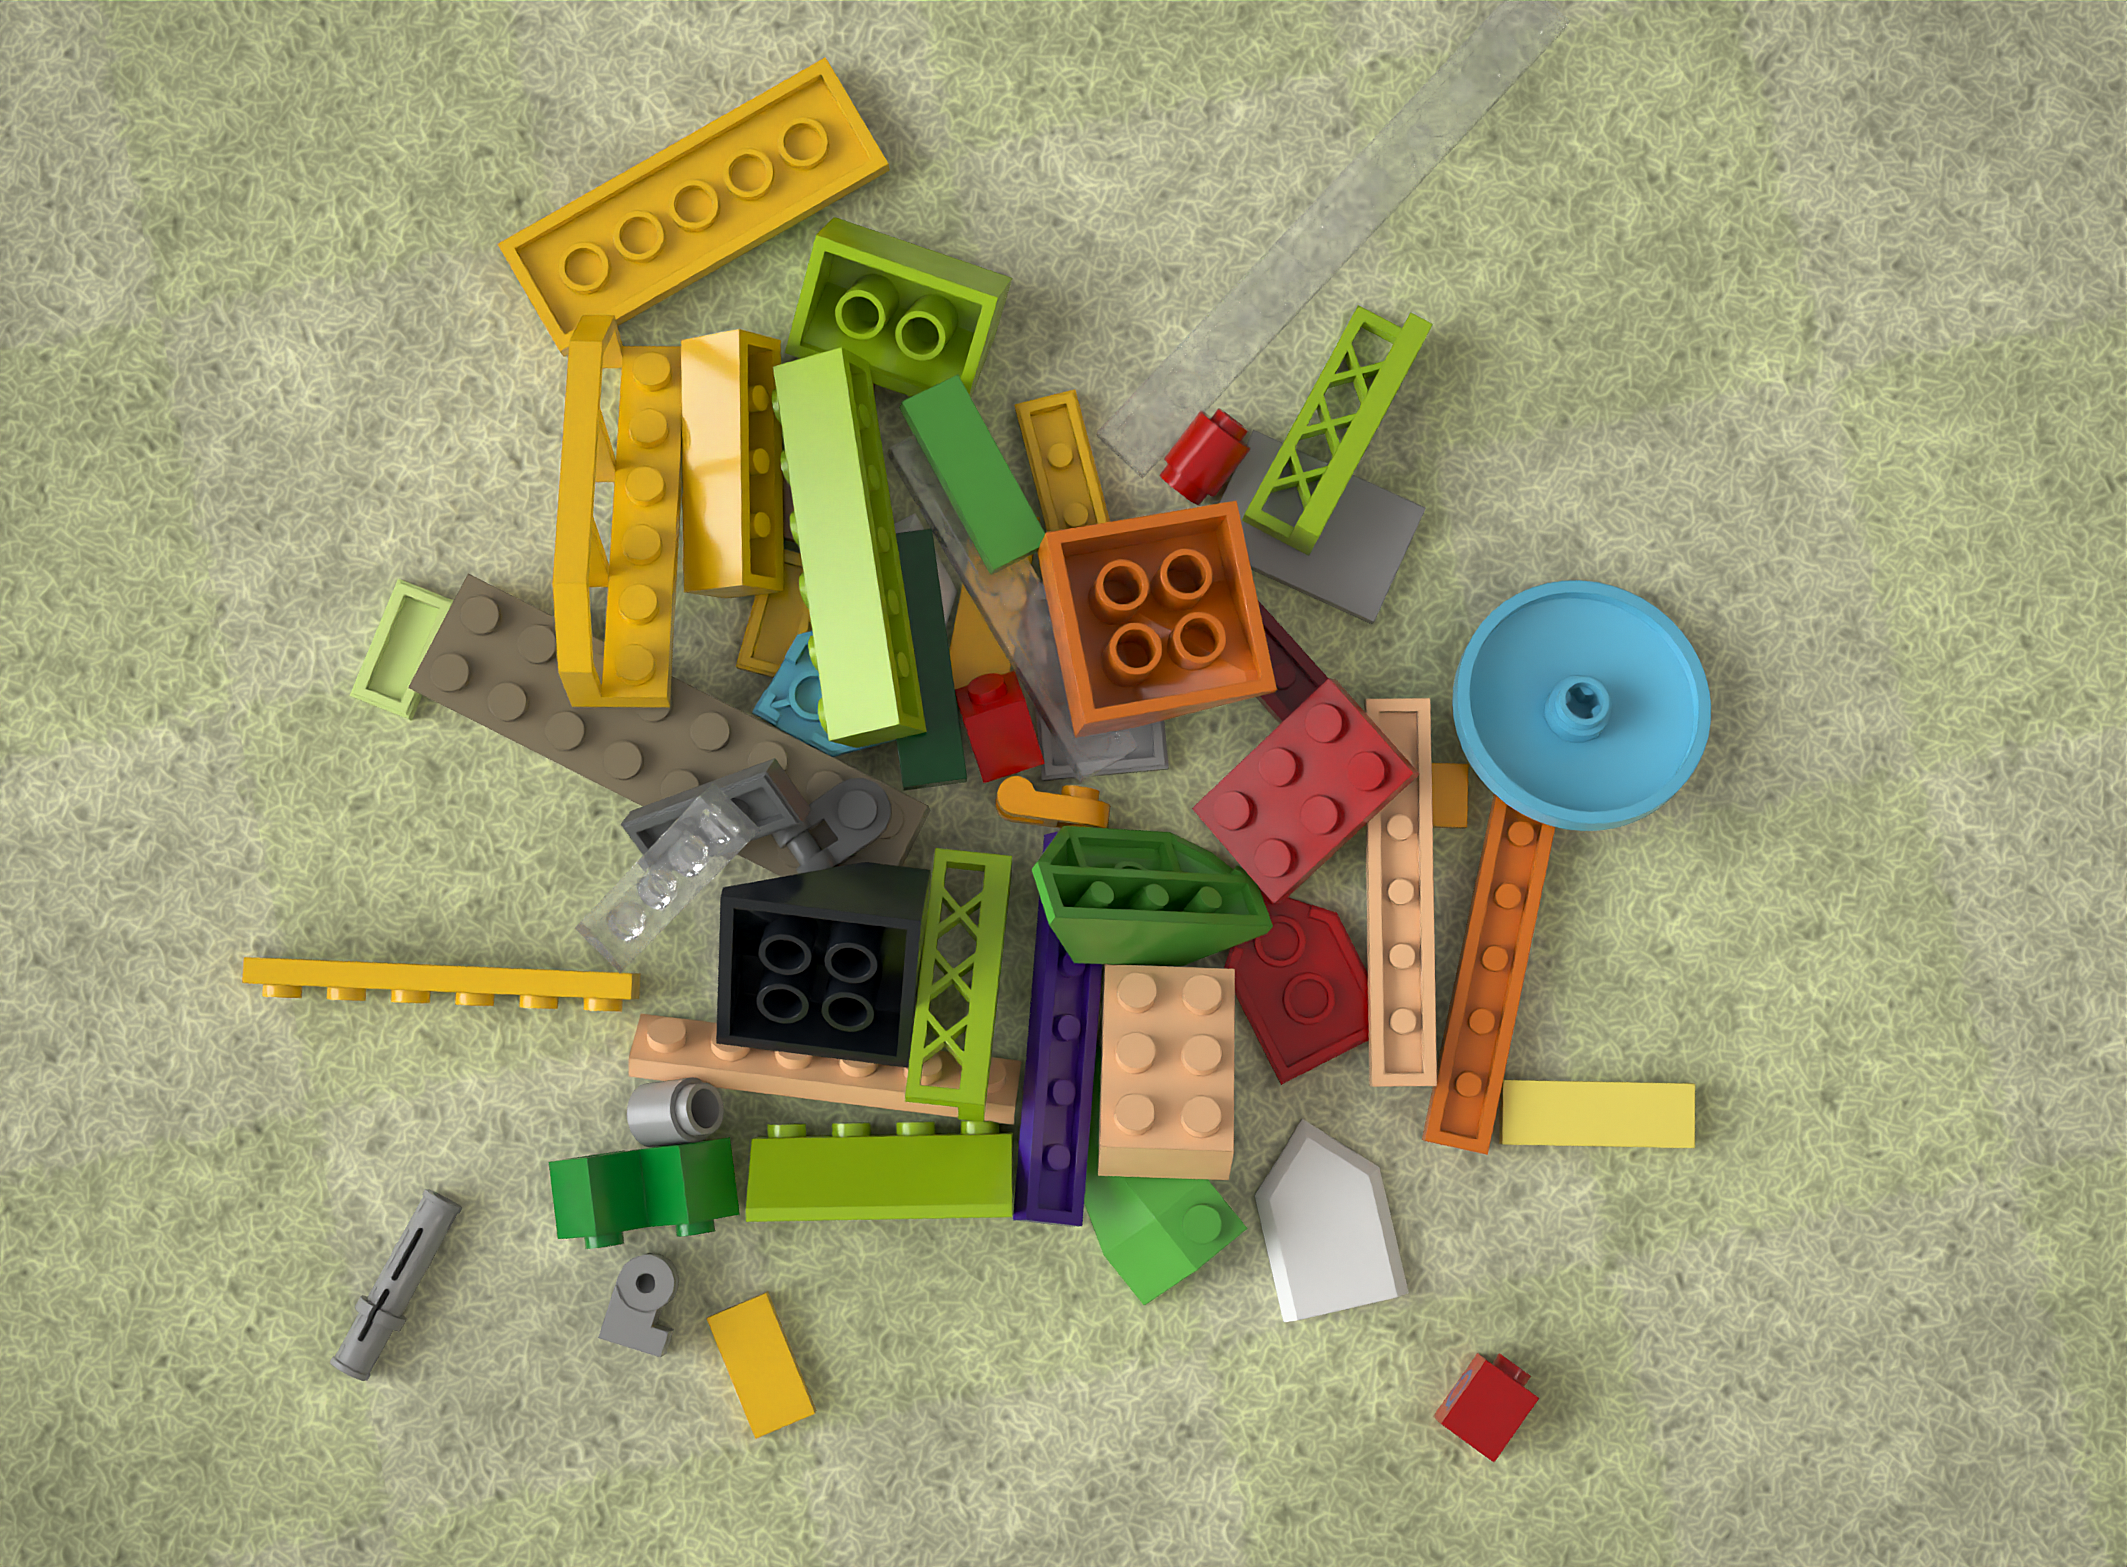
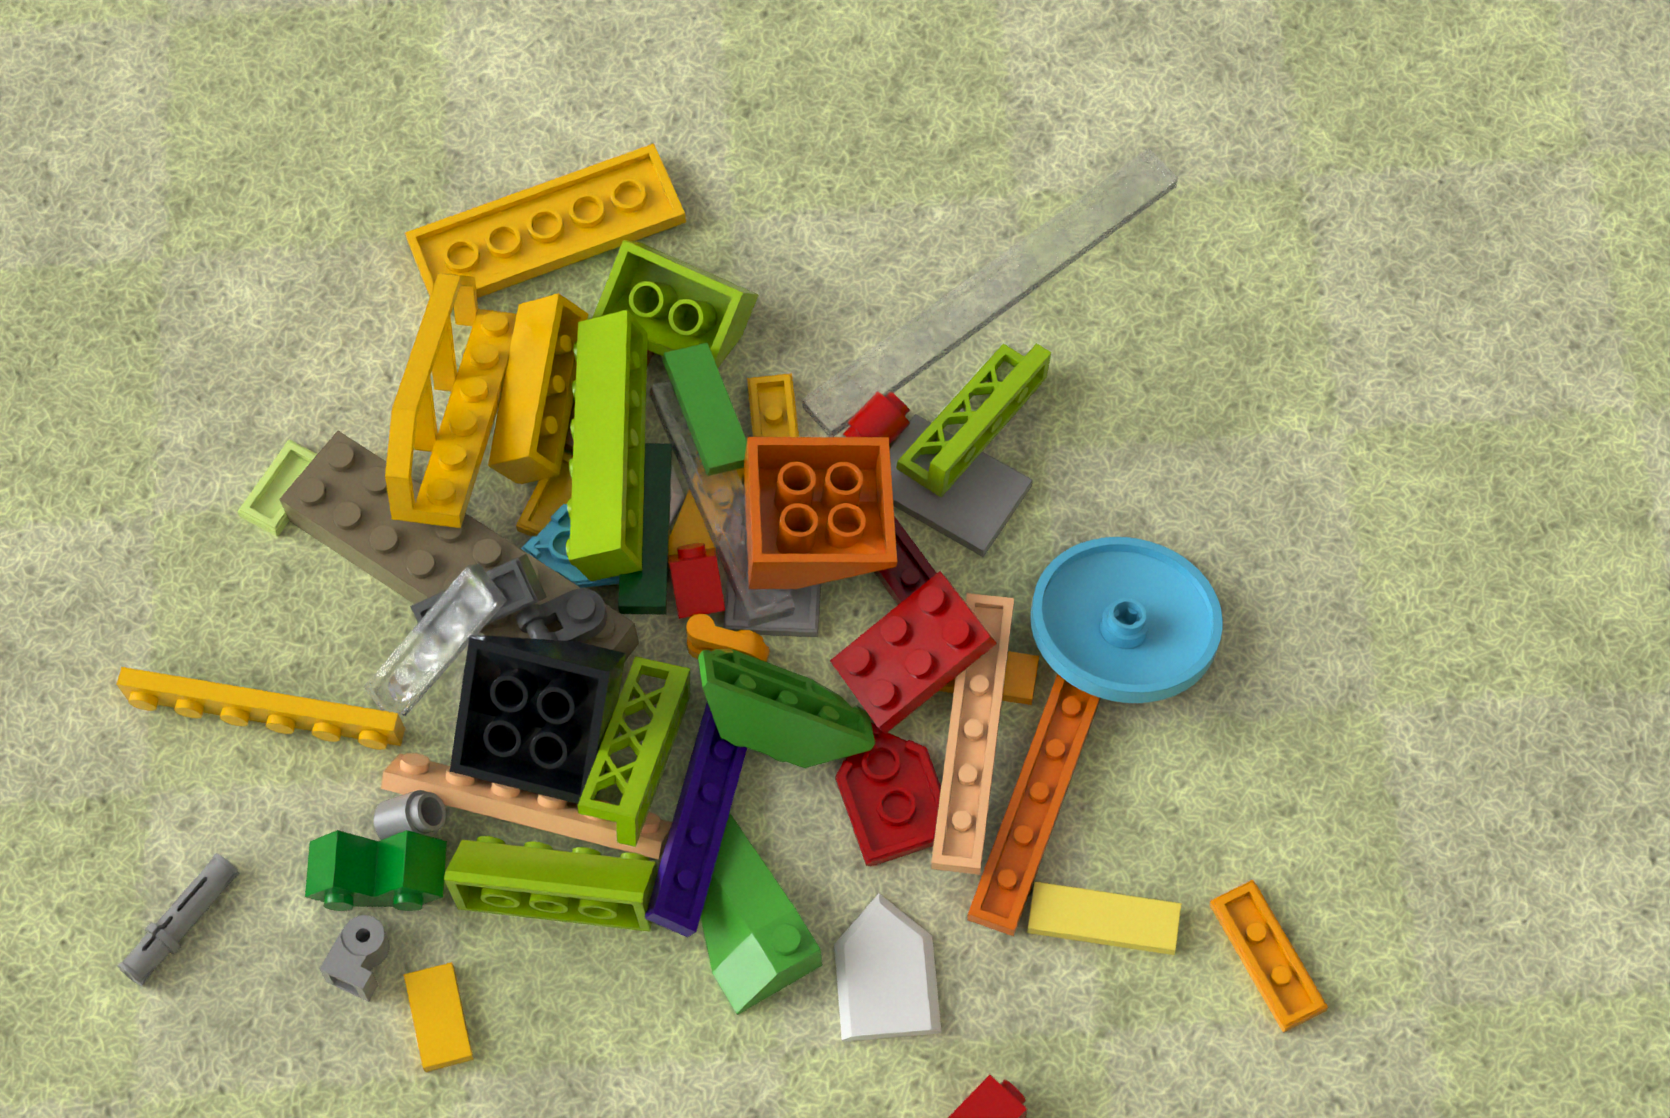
camera: 15 degrees right, 20 degrees down
(1167, 1072) = (777, 830): light nougat brick -> none
(1811, 1134) = (1268, 956): none -> light orange tile

